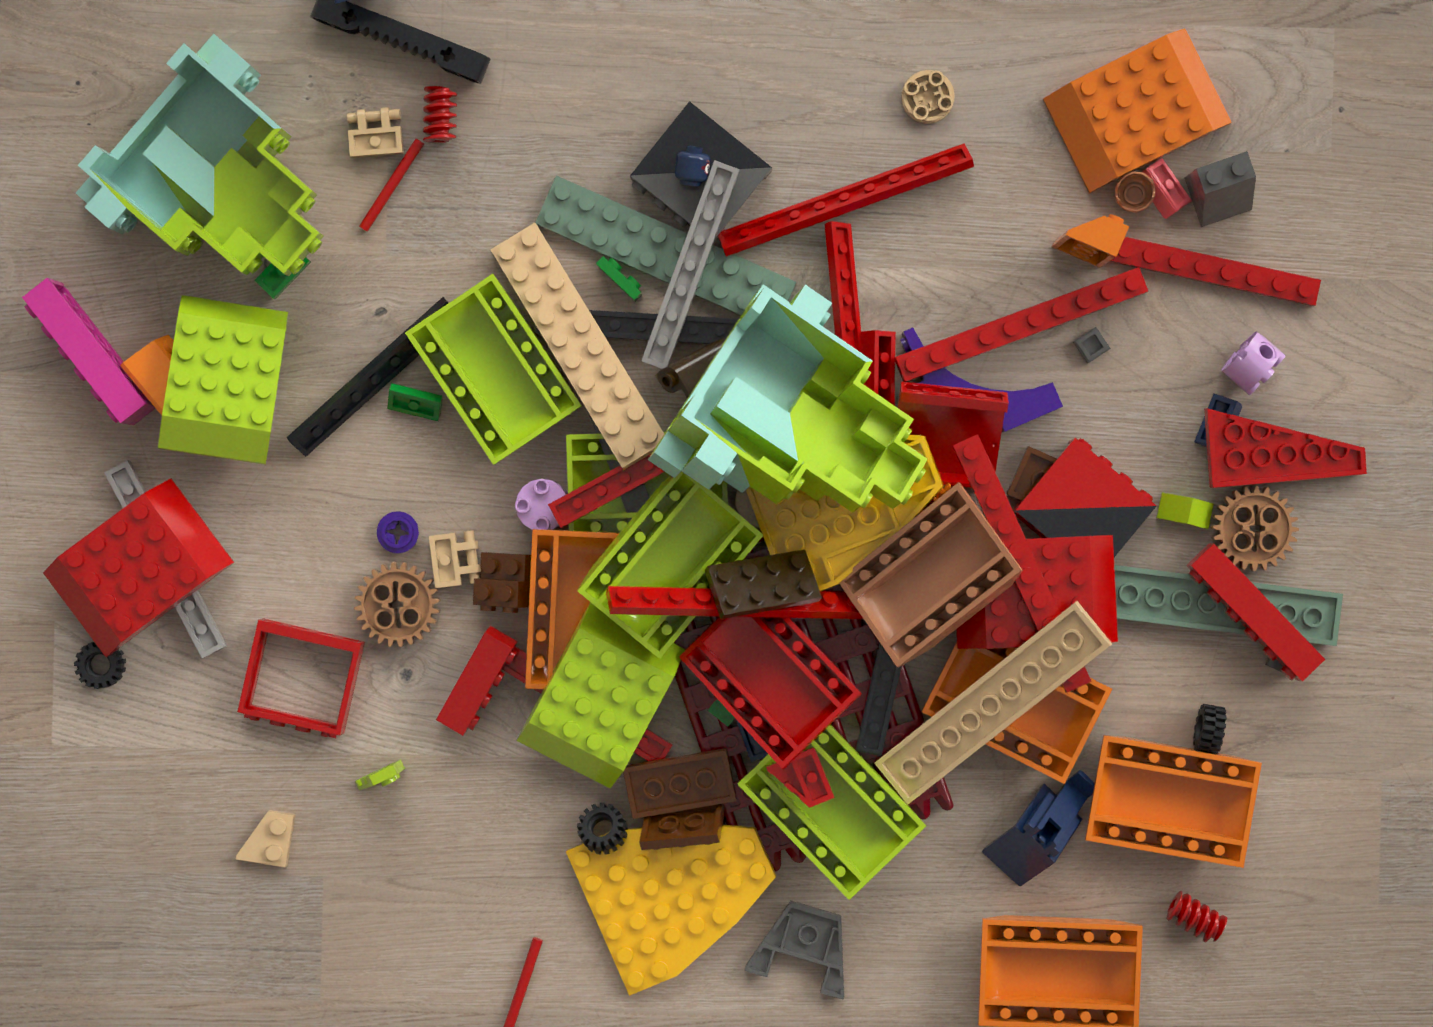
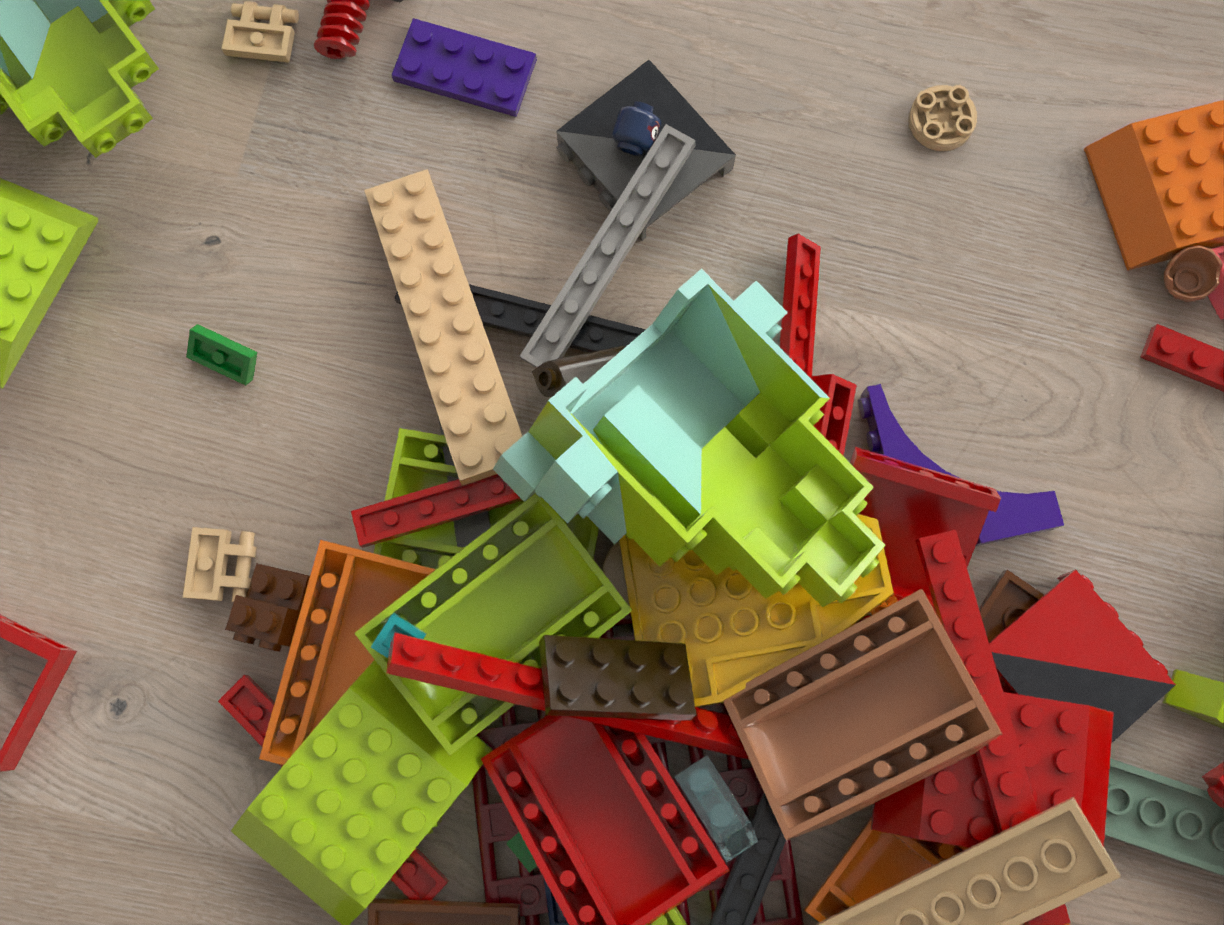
camera: 15 degrees right, 10 degrees down
(275, 281) = (95, 174): green plate -> none
(358, 390) = (177, 314): black plate -> none
(373, 606) = (97, 604): medium nougat gear -> none
(384, 776) = (44, 841): lime wing -> none
(388, 540) = (151, 500): dark purple gear -> none
(391, 185) = (264, 95): red bar -> none
(477, 680) = (201, 735): red brick -> none
(493, 369) = (327, 329): lime slope -> none
(533, 504) = (333, 508): lavender brick -> none
(543, 129) = (464, 67): none -> dark purple plate
(603, 582) = (394, 625): none -> teal plate
(612, 270) = (509, 243): green plate -> none
(651, 245) = (552, 218): sand green plate -> none
(845, 199) = (829, 214): red plate -> none
(848, 657) = (717, 808): none -> clear light blue brick
(1021, 324) = (1019, 410): red plate -> none
(1091, 345) = (1106, 457): dark grey tile -> none
(1094, 241) = (1143, 311): orange slope -> none

